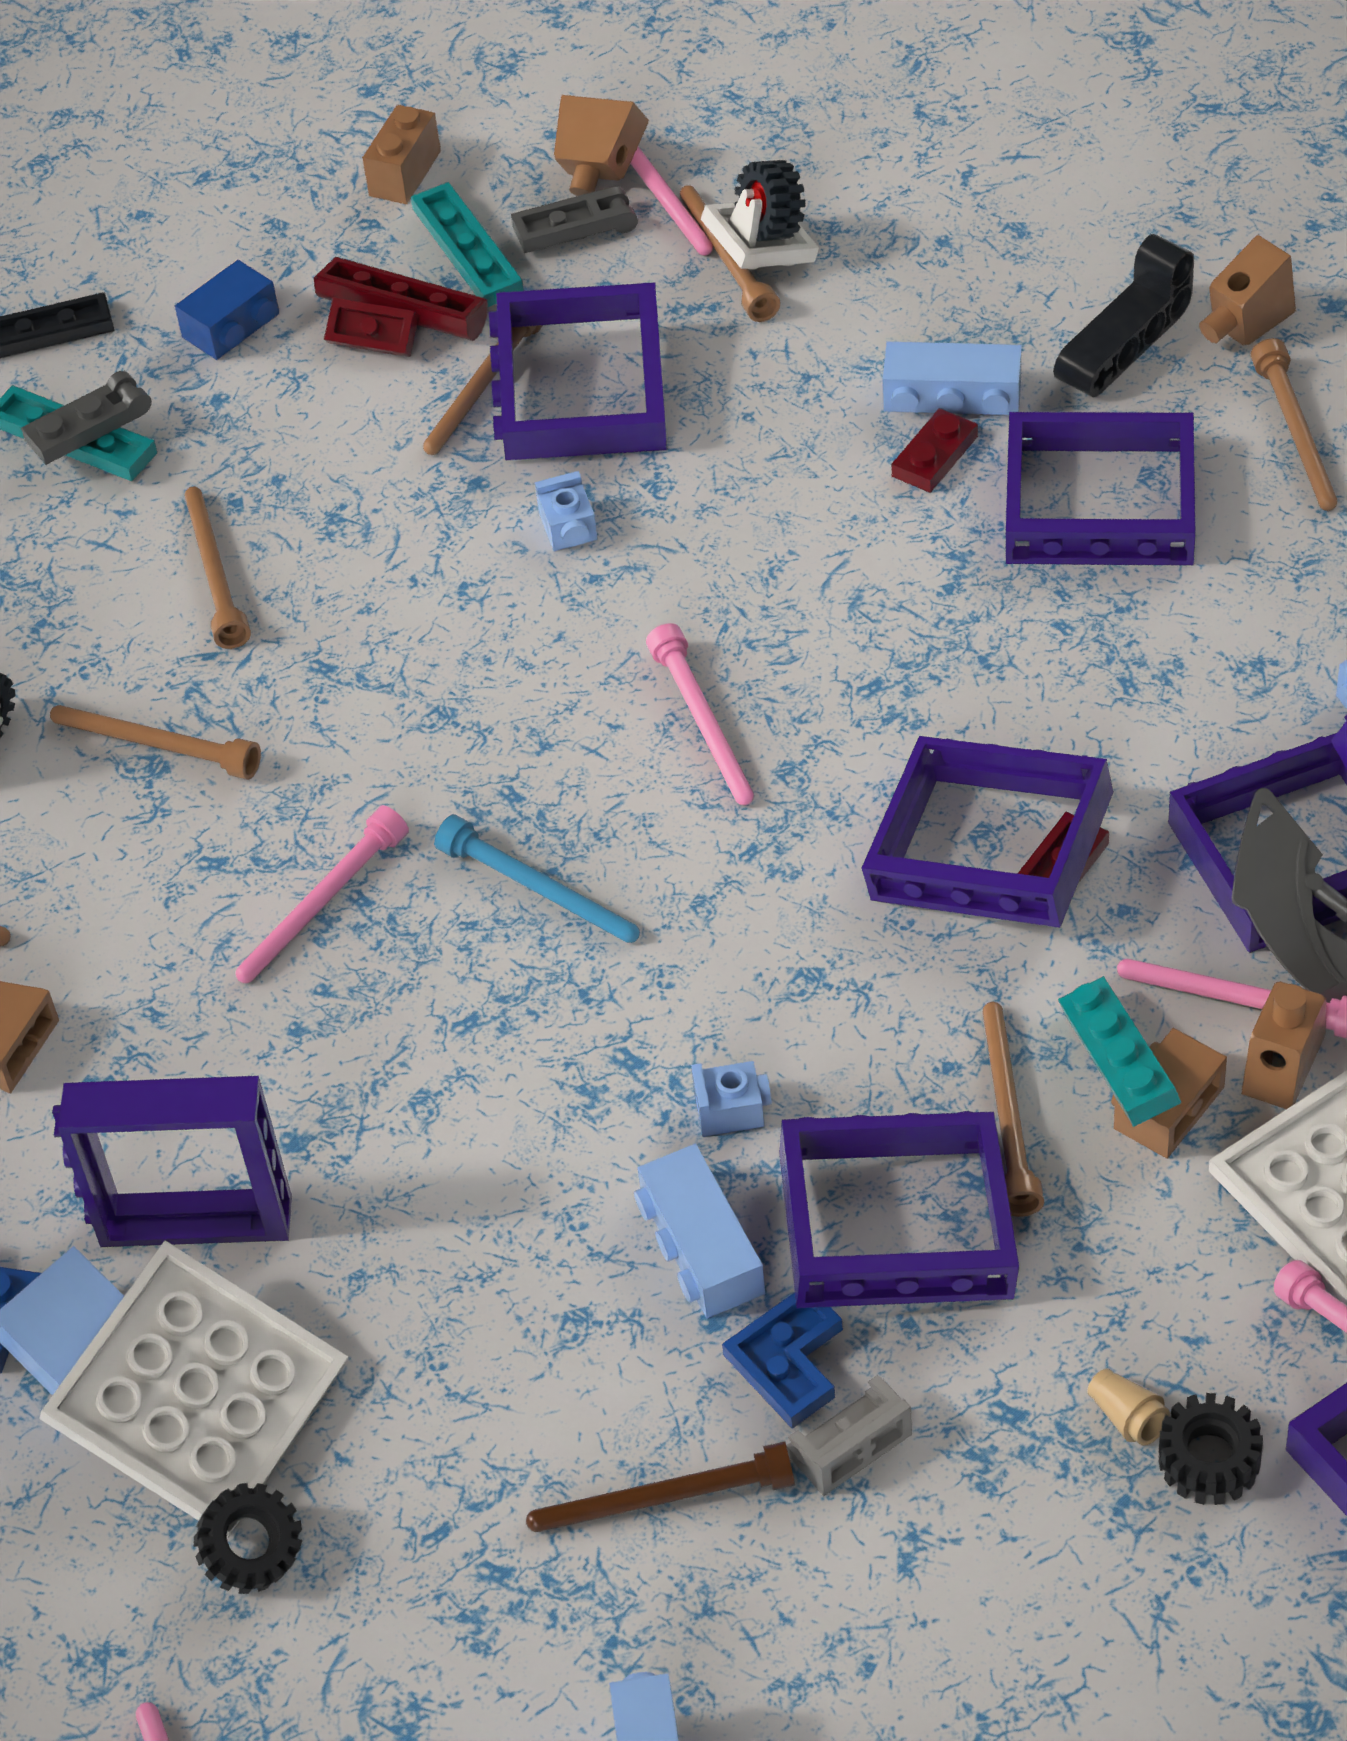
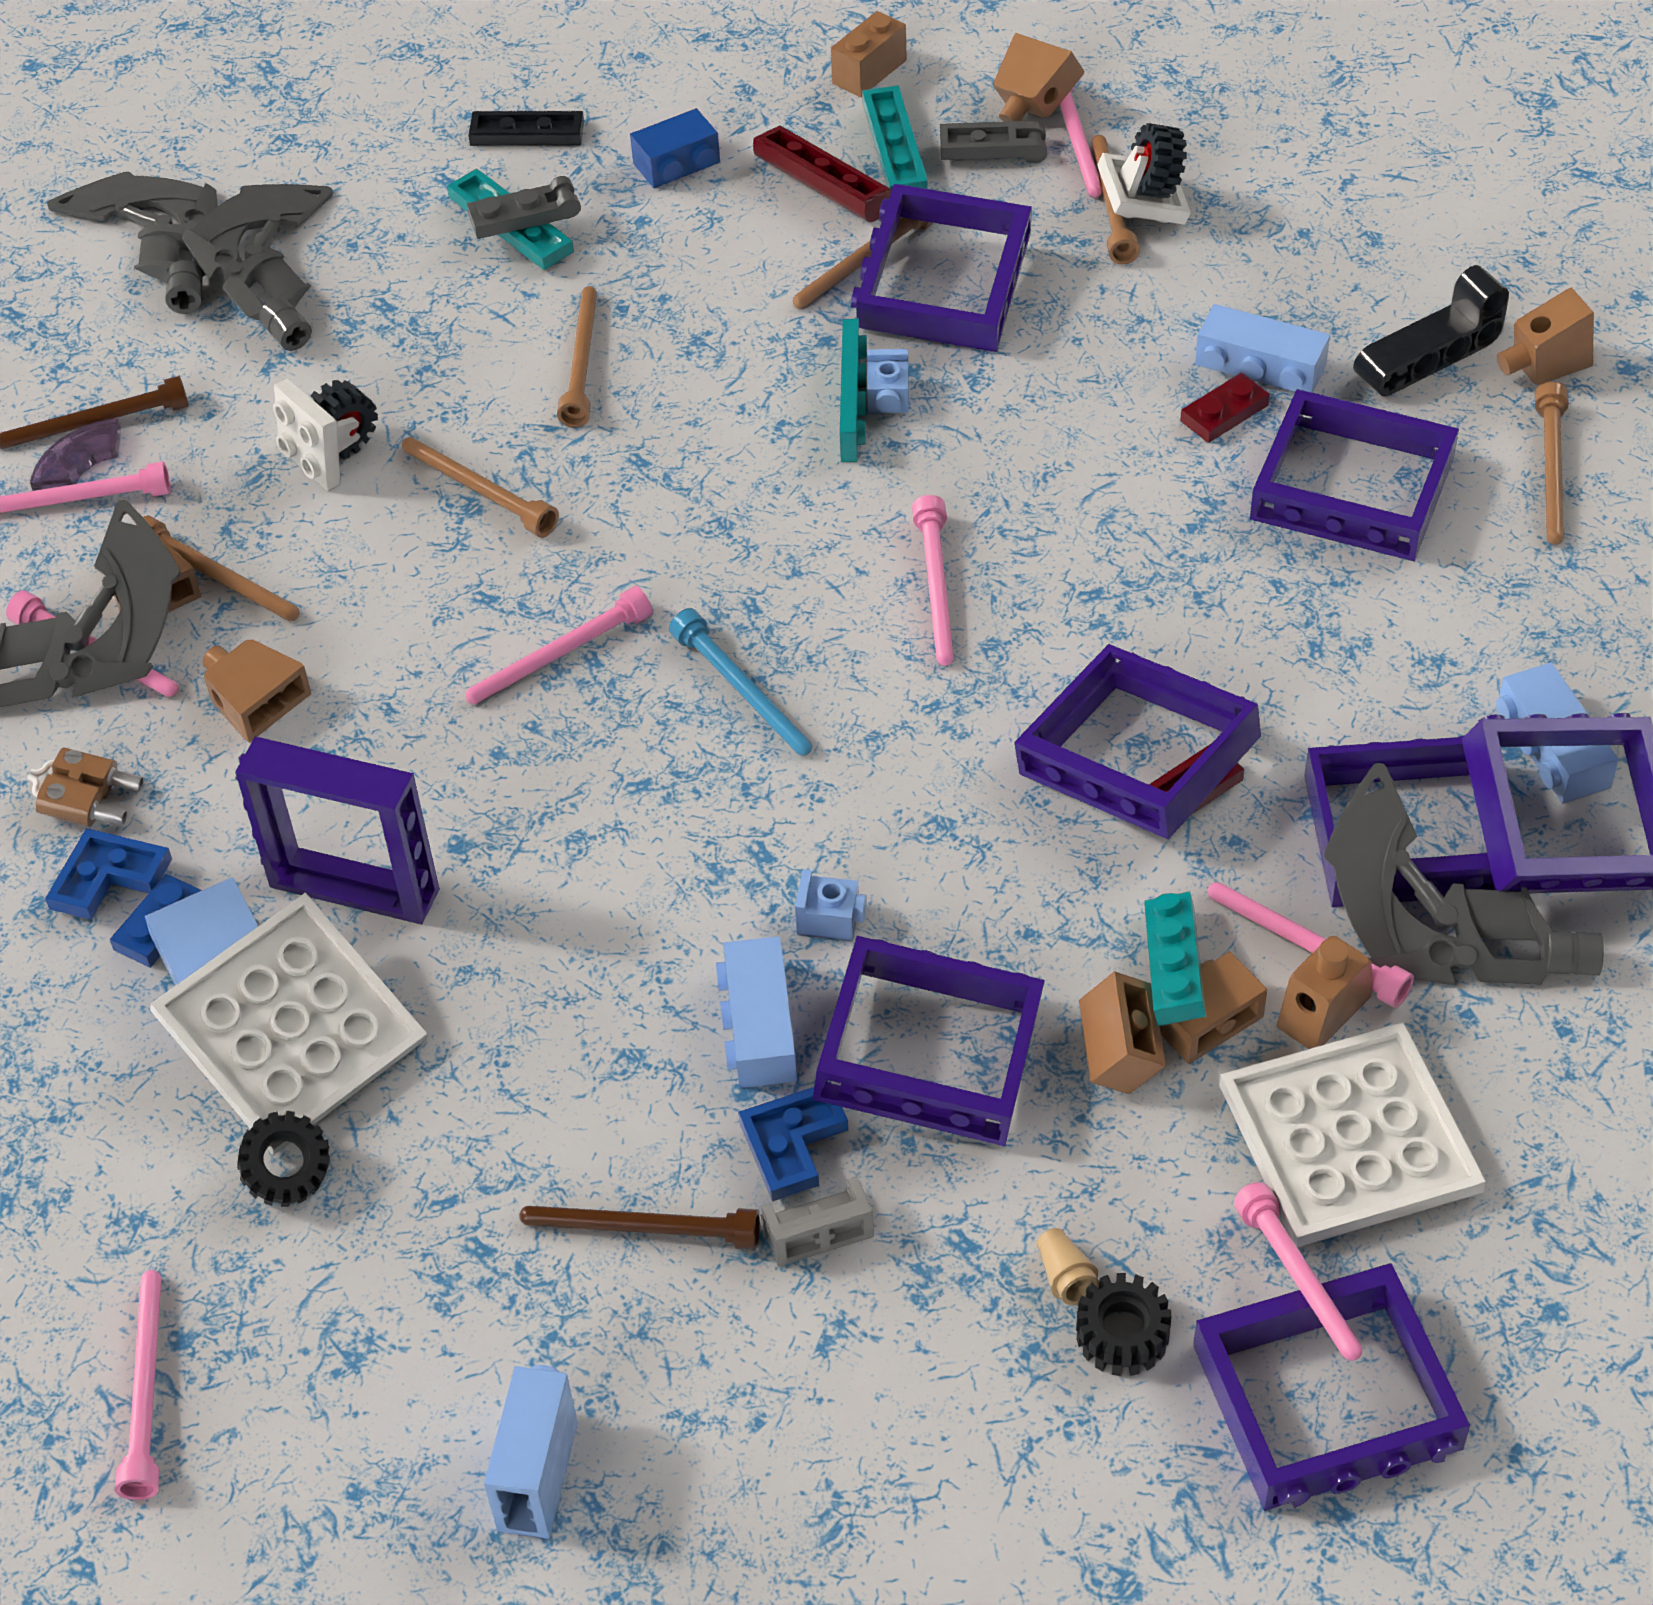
camera: 15 degrees right, 0 degrees up
(371, 327) = (787, 190): dark red plate -> none
(526, 519) = (852, 400): none -> teal plate
(1022, 1185) = (1047, 1053): medium nougat piece -> none
(1093, 1145) = (1121, 1033): none -> medium nougat brick

